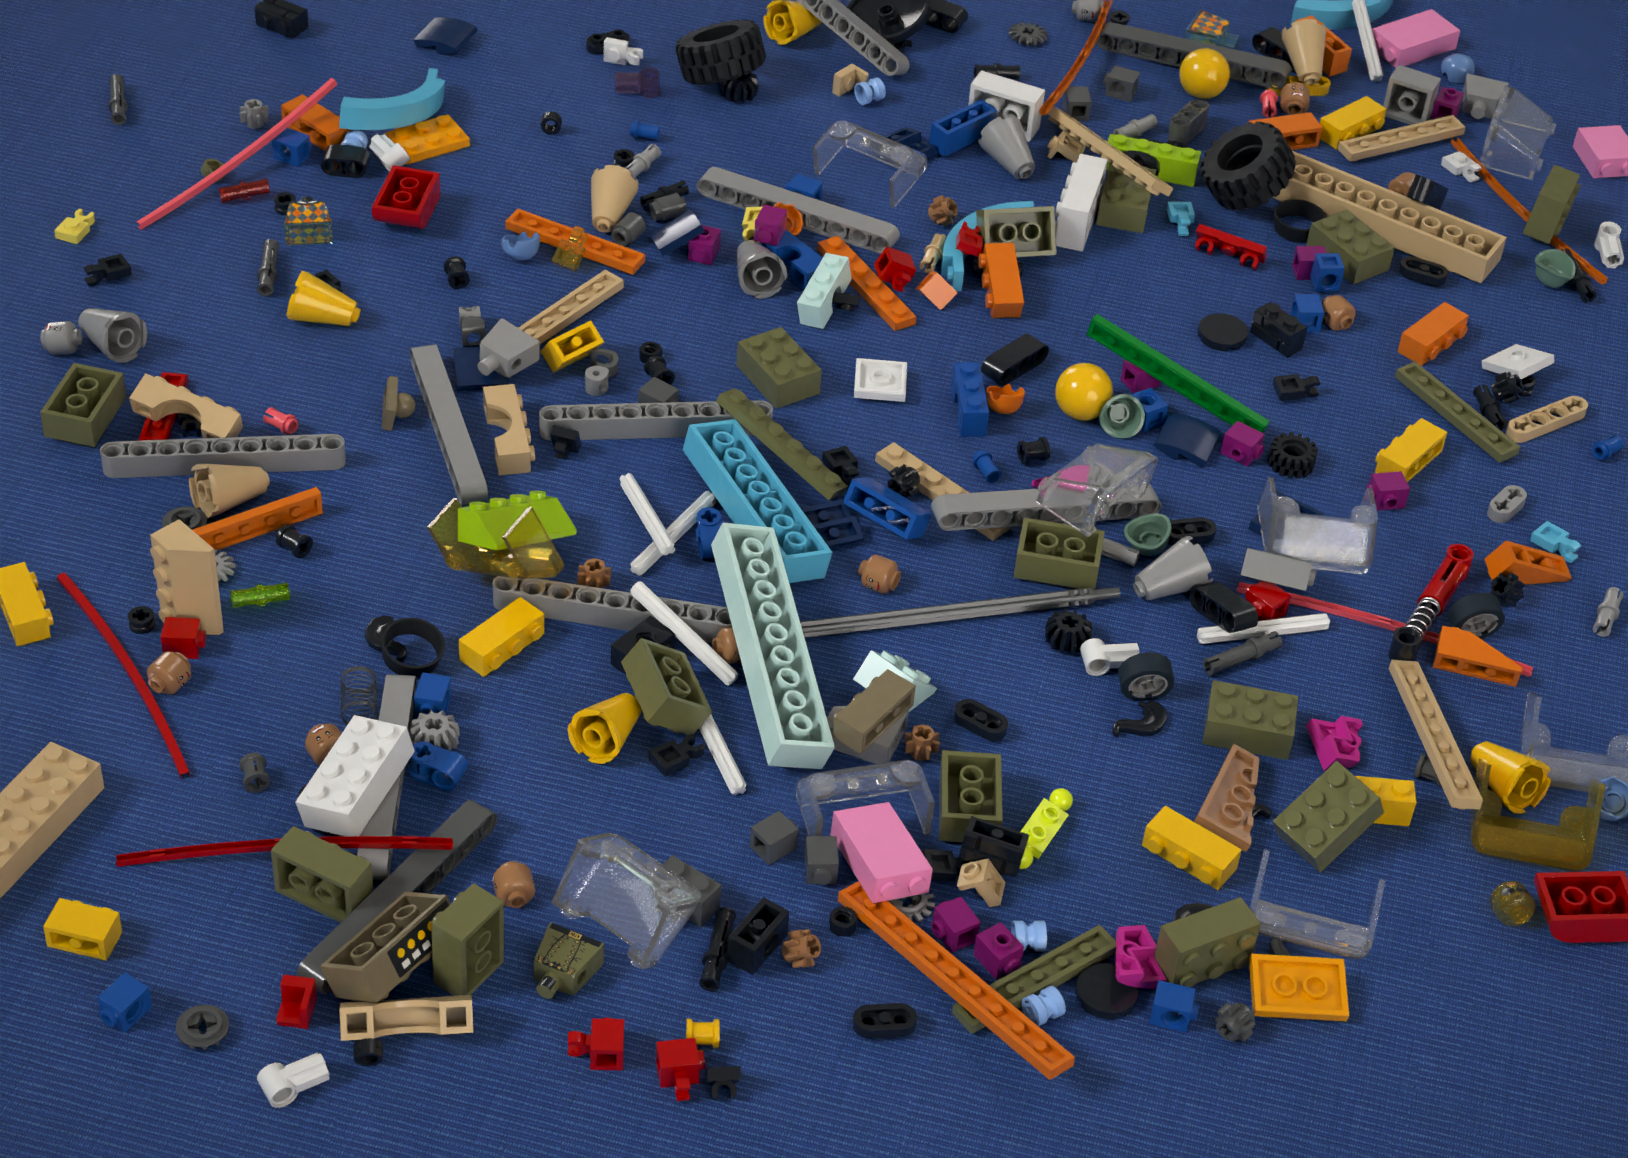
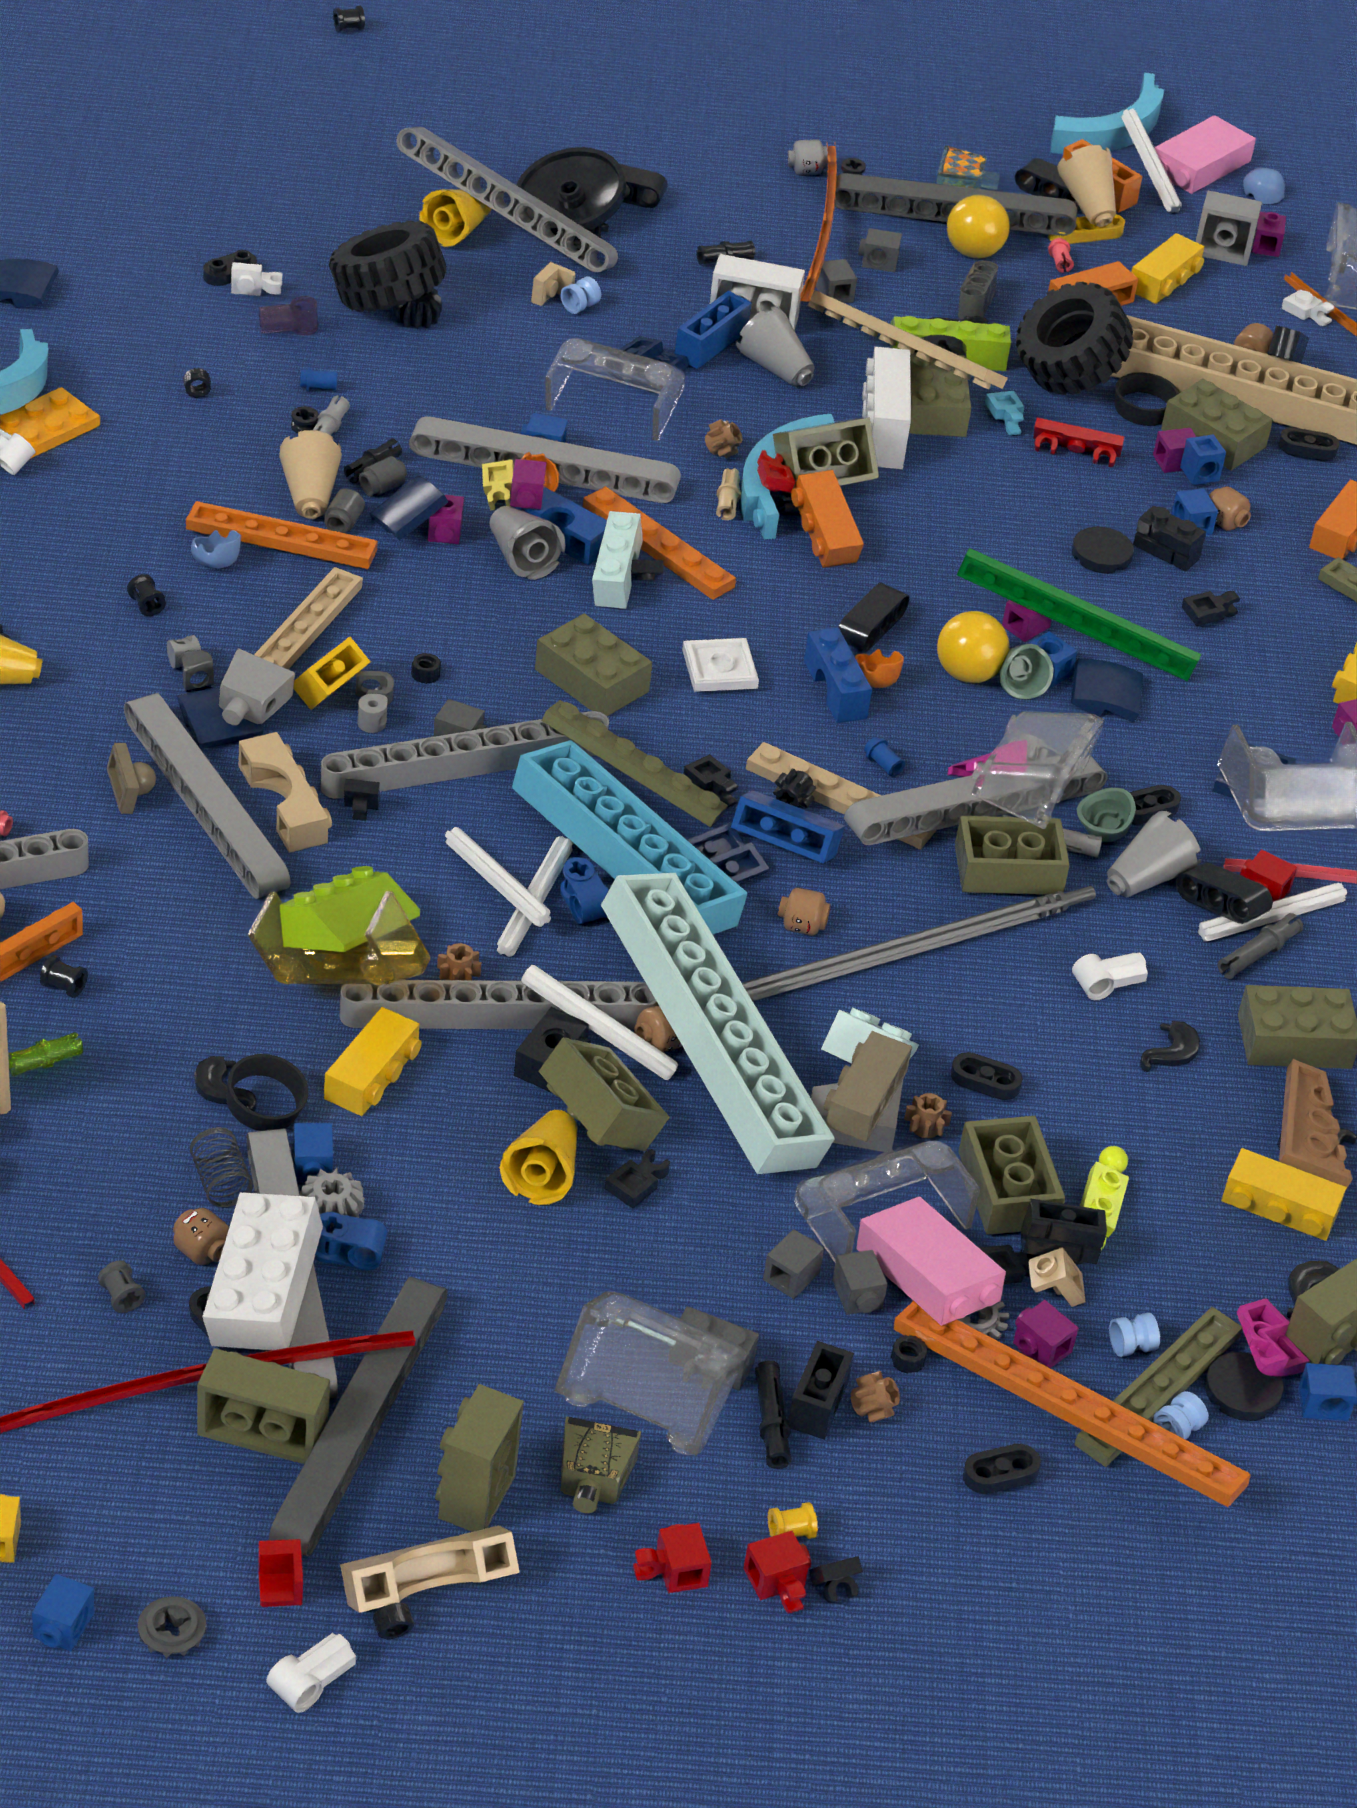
camera: 15 degrees left, 0 degrees up
(385, 949) = (380, 1483): dark tan brick -> none
(407, 197) = (52, 503): red brick -> none
(514, 884) = (499, 1370): medium nougat head -> none
(571, 252) = (282, 550): clear yellow plate -> none
(657, 368) = (442, 687): black bush -> none
(722, 756) = (694, 1172): white axle -> none
(895, 268) = (692, 519): red brick -> none
(936, 289) = (749, 540): orange panel -> none
(998, 950) = (1106, 1359): magenta brick -> none
(1018, 33) = (757, 197): dark grey gear -> none
(1033, 450) = (934, 728): black bush -> none
(1066, 145) = (843, 337): tan bracket -> none
(1067, 631) = (1052, 949): black gear -> none
(1136, 127) = (916, 304): light grey pin -> none
(1146, 676) = (1165, 992): black wheel -> none
(1243, 444) = (1175, 686): magenta brick -> none
(1278, 569) = (1273, 836): light grey window -> none
(1281, 456) = (1236, 692): black tyre -> none
(1295, 98) = (1091, 246): medium nougat head -> none
(1401, 138) = (1228, 281): tan plate -> none
(1481, 96) = (1305, 217): light grey torso -> none

